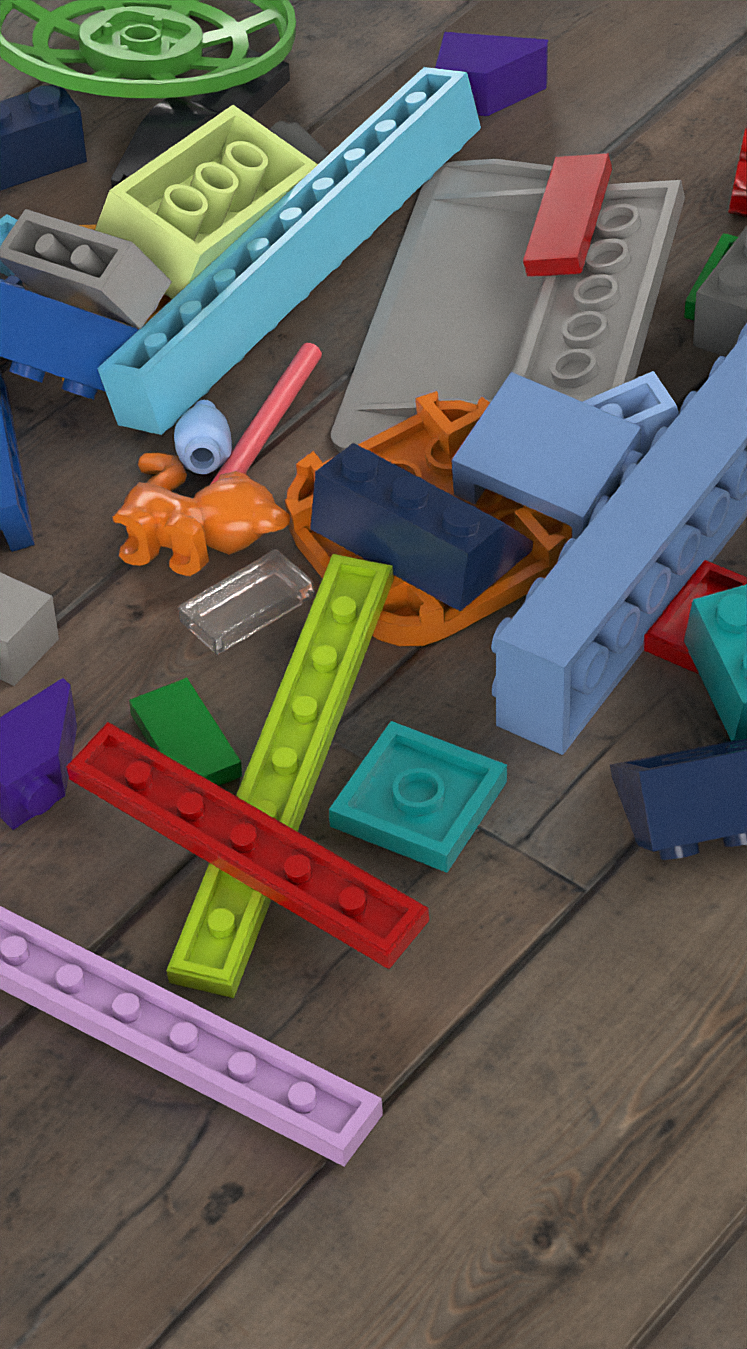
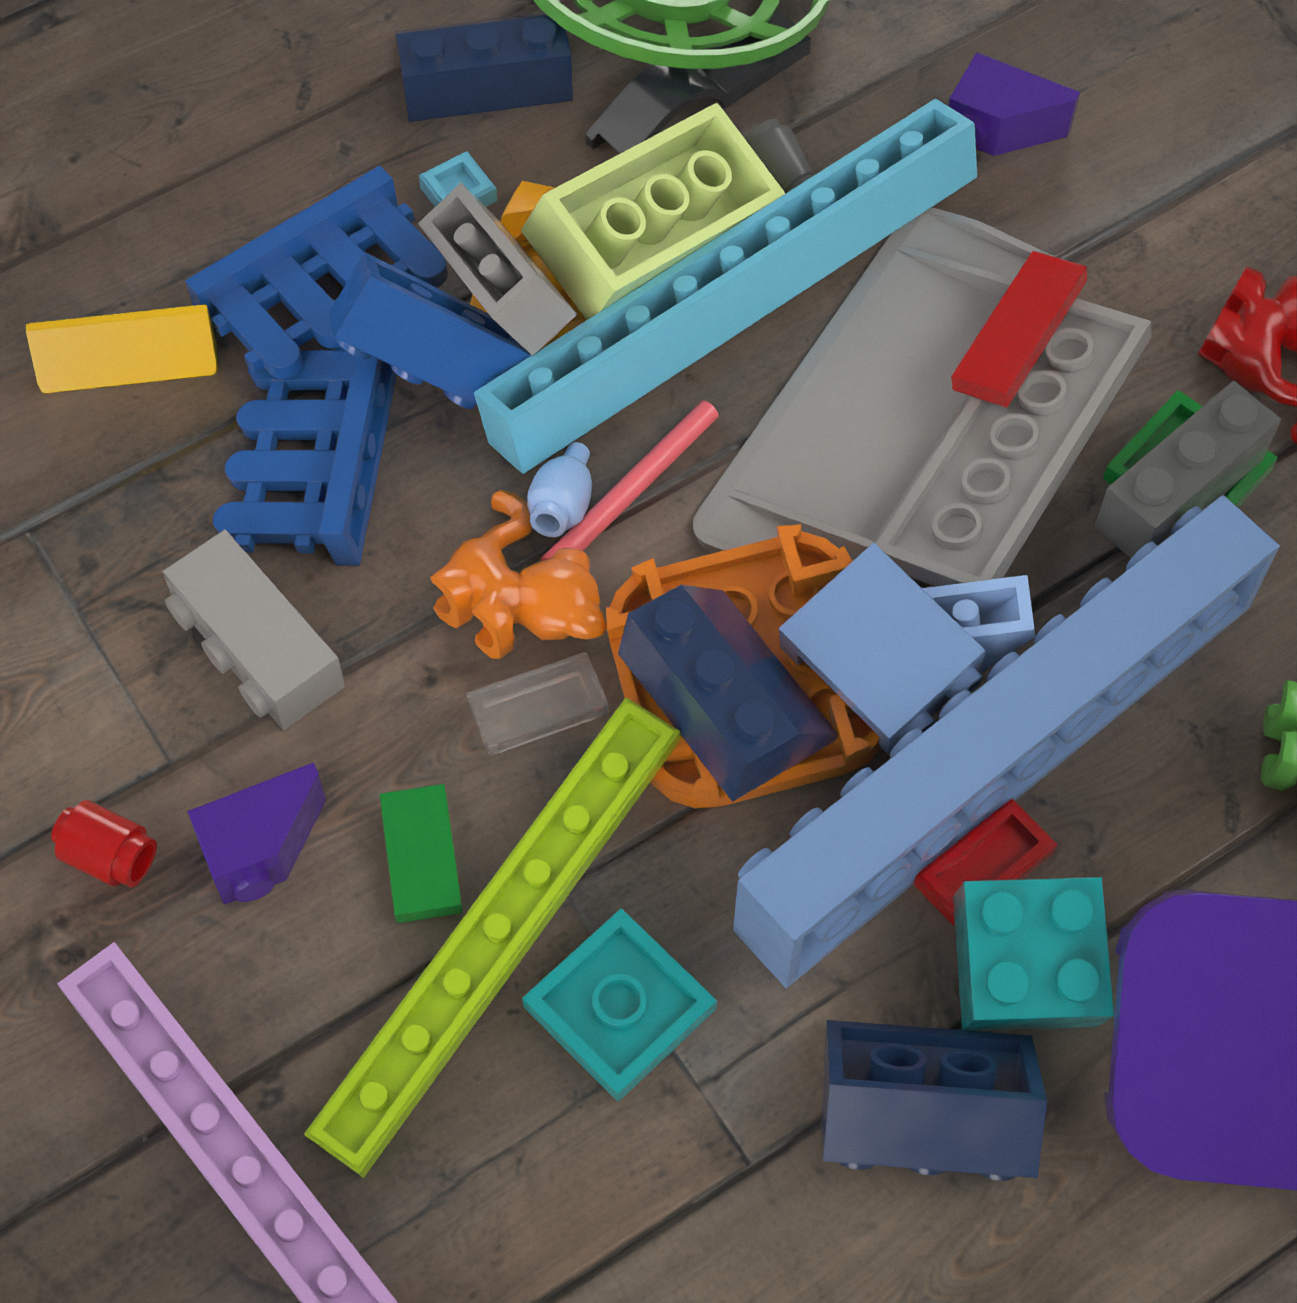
camera: 15 degrees right, 15 degrees up
(249, 845) = (426, 1024): red tile -> none

